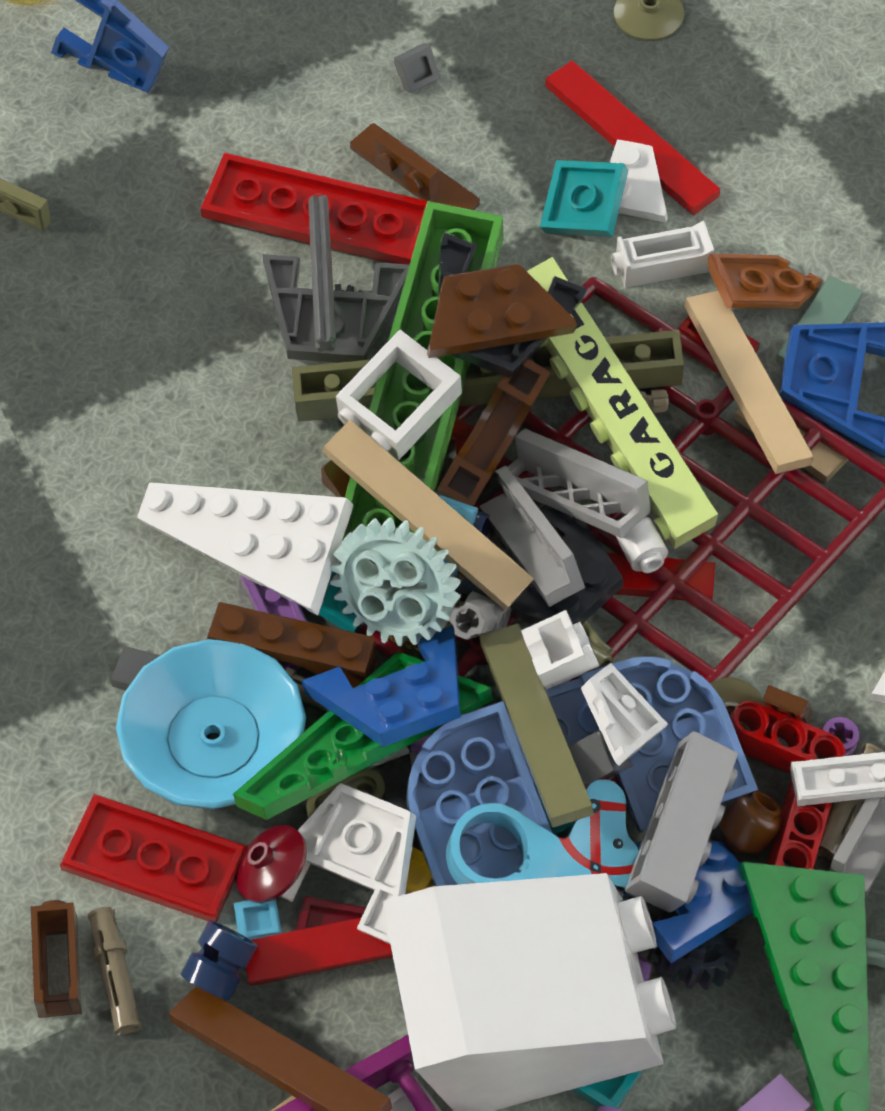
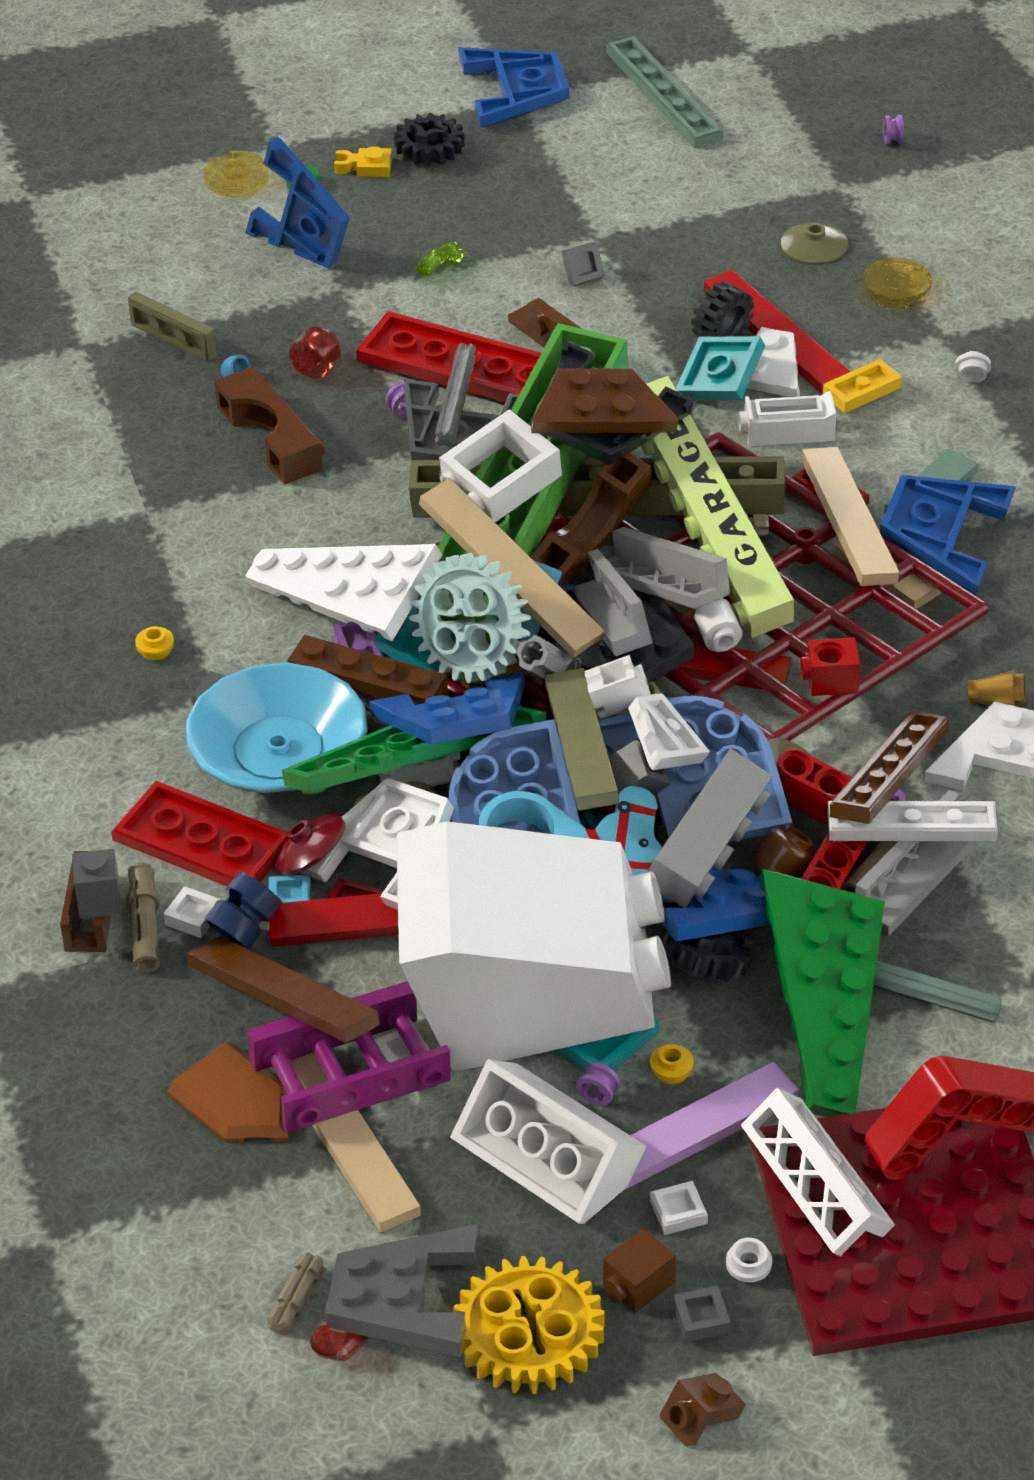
camera: 10 degrees right, 15 degrees down
(63, 621) = (154, 643): none -> yellow plate
(66, 957) = (96, 883): none -> dark grey brick
(78, 237) = (234, 364): none -> dark azure hinge
(101, 286) = (290, 446): none -> reddish brown arch
(158, 214) = (316, 351): none -> clear red head
(163, 958) = (189, 910): none -> white plate
(254, 268) = (394, 397): none -> medium lavender bush
(263, 67) = (438, 255): none -> clear neon green arm
(576, 129) = (722, 312): none -> black tyre
(677, 1098) = (668, 1071): none -> yellow plate
(730, 202) = (863, 385): none -> yellow plate
(742, 59) = (897, 282): none -> clear yellow tile
(760, 281) = (878, 445): dark orange tile -> none
(775, 574) = (831, 666): none -> red brick
(788, 704) = (831, 747): reddish brown tile -> none
(838, 166) = (973, 366): none -> white plate
(842, 708) = (889, 767): none -> reddish brown tile

